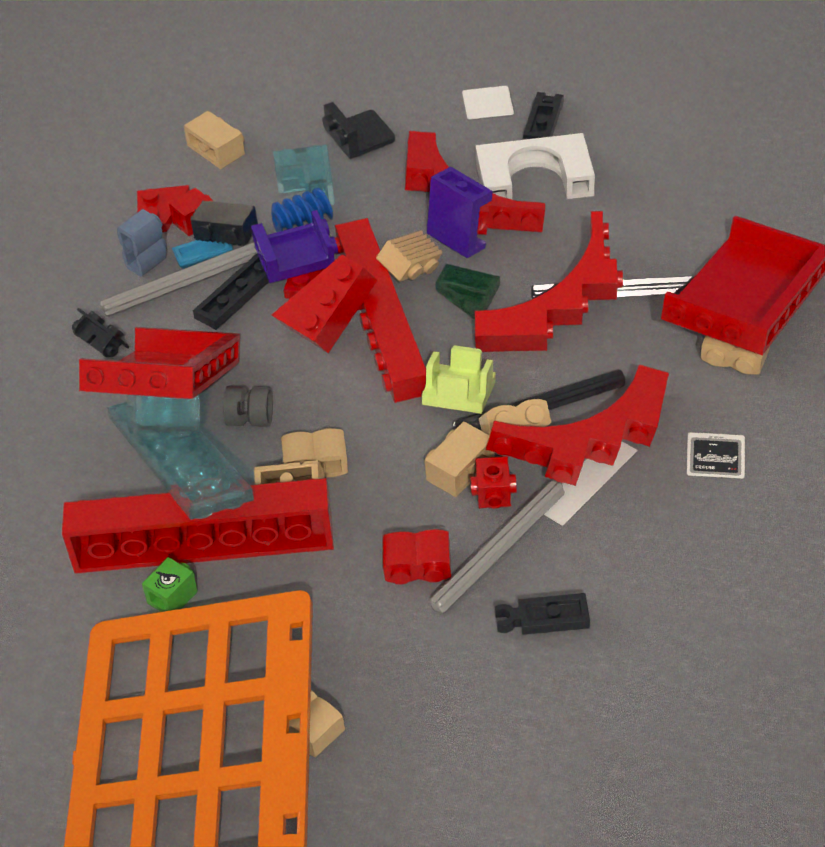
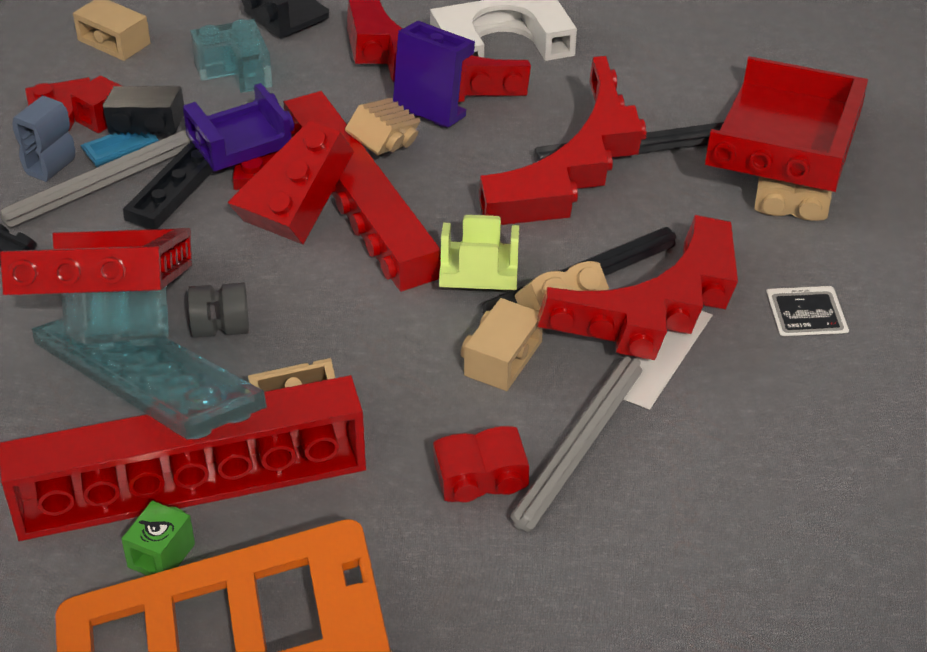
camera: 15 degrees left, 5 degrees down
(300, 209) = (233, 89): blue piece -> none
(323, 445) = (324, 342): tan brick -> none
(467, 288) = (458, 158): clear green wing -> none
(493, 482) = (555, 365): red brick -> none
(545, 614) = (665, 515): black plate -> none

